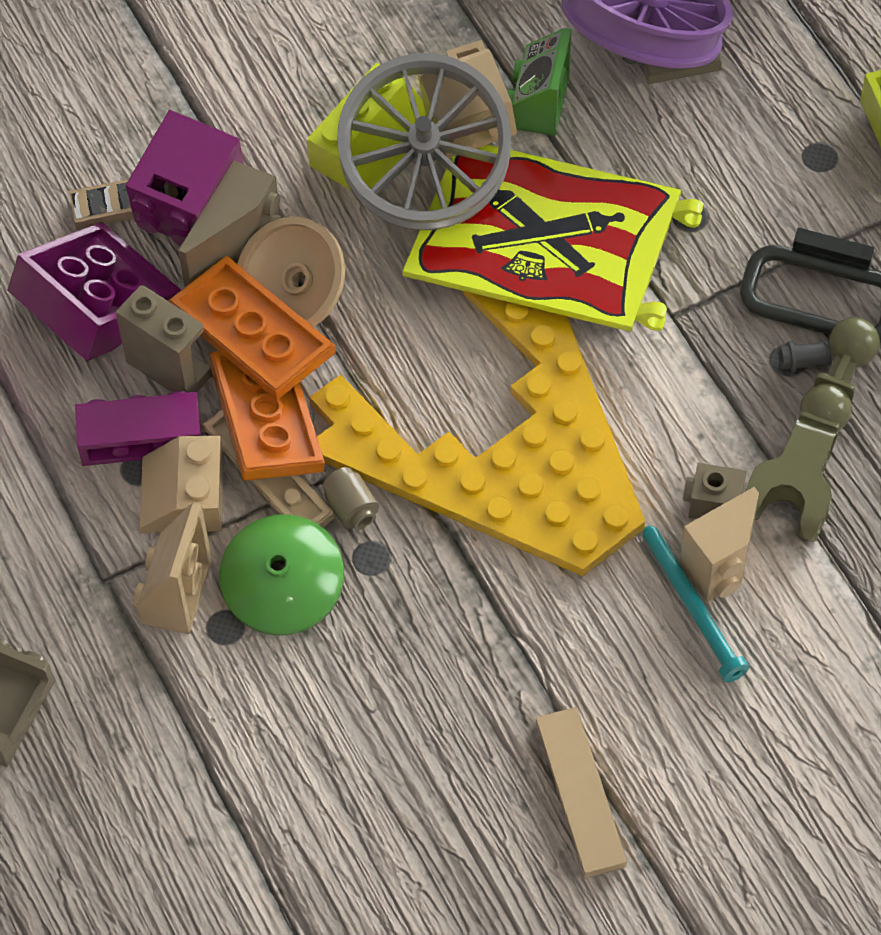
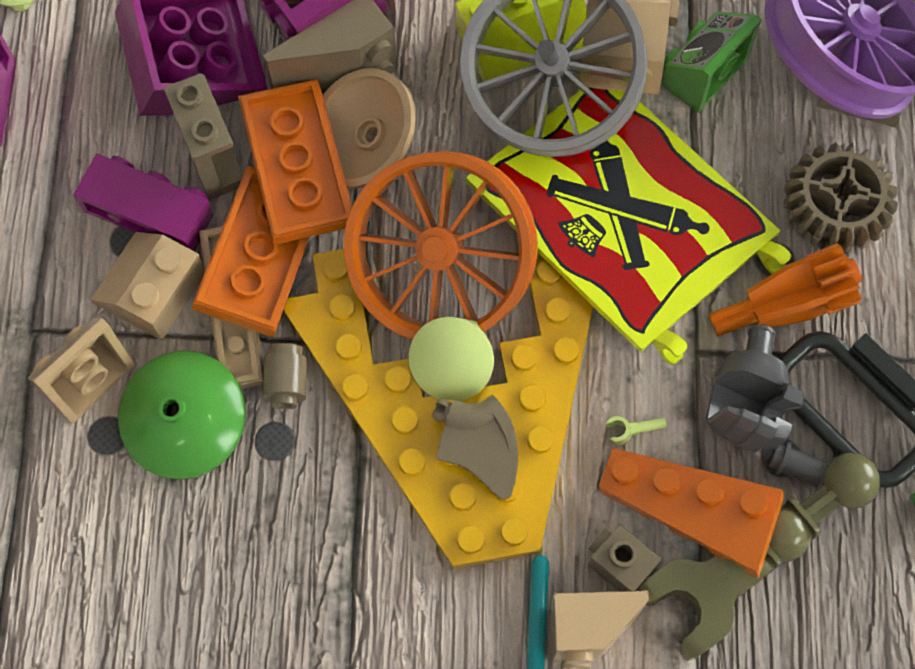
camera: 30 degrees right, 10 degrees up
(423, 325) = (438, 246): none -> orange wheel
(482, 411) = (451, 358): none -> yellowish green dish
(546, 461) = (480, 441): none -> dark tan arm
(658, 396) = (633, 428): none -> yellowish green hand
(704, 151) = (869, 196): none -> dark tan gear
(724, 228) = (796, 293): none -> orange piece
(740, 318) = (753, 395): none -> dark grey piece
(761, 414) = (712, 509): none -> orange wing

